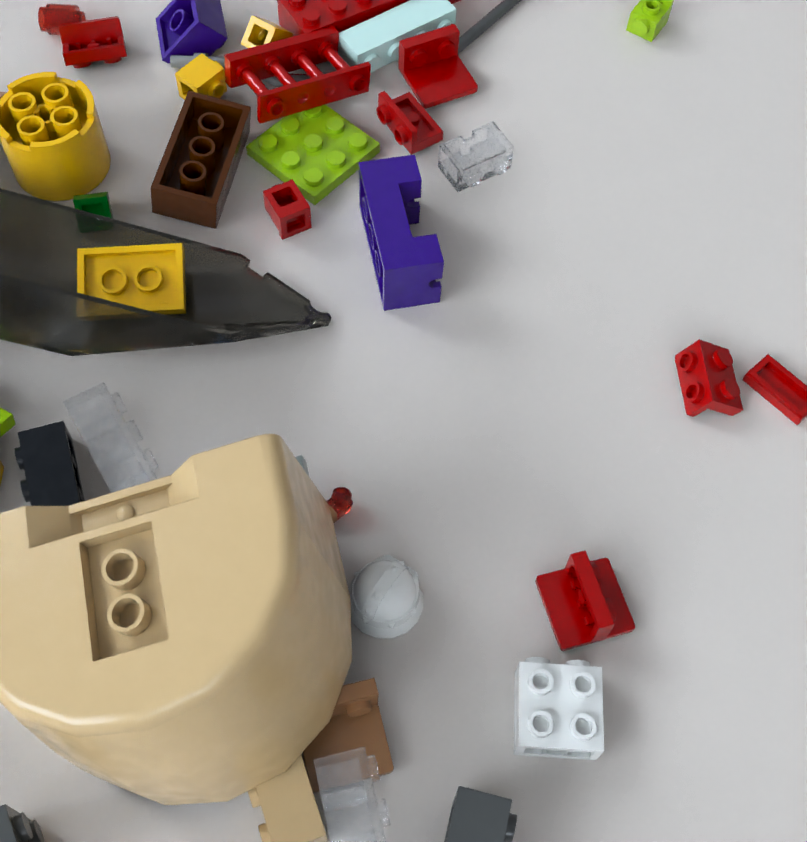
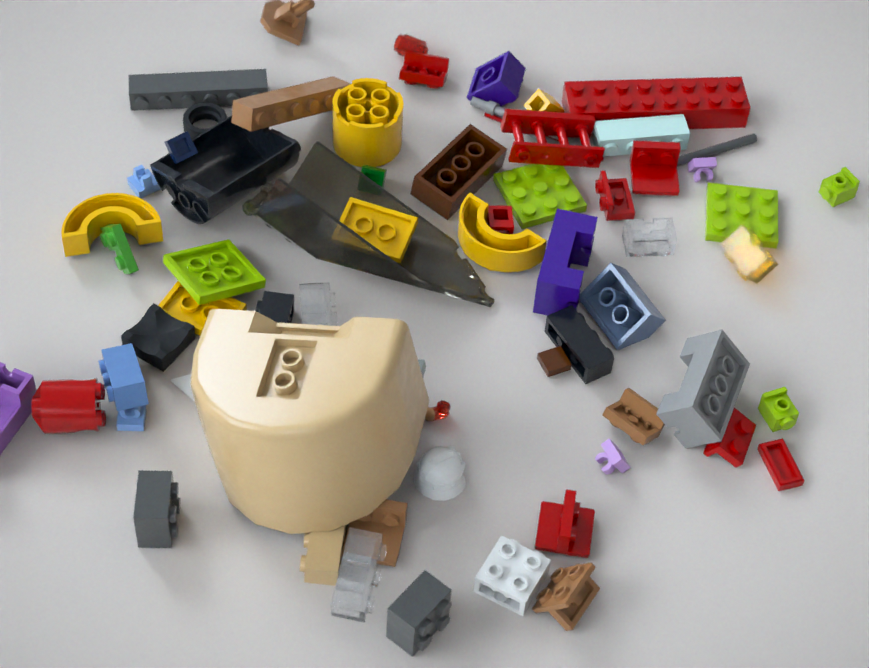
camera: 25 degrees right, 10 degrees down
(201, 76) = (485, 118): yellow brick -> none
(293, 246) = (491, 248): none -> yellow brick
(446, 367) = (554, 361): none -> reddish brown tile
(467, 332) = (580, 344): none -> black brick
(488, 44) = (702, 165): none -> lavender tile
(492, 261) = (621, 307): none -> sand blue slope
(561, 89) = (736, 205): none -> lime plate
(589, 403) = (635, 417): none -> medium nougat bracket
(592, 470) = (614, 457): none -> lavender tile
(594, 130) = (745, 251): none -> clear yellow brick
(640, 703) = (568, 594): none -> medium nougat bracket
(672, 353) = (707, 391): none -> light grey piece
(744, 320) = (778, 410): none -> lime brick

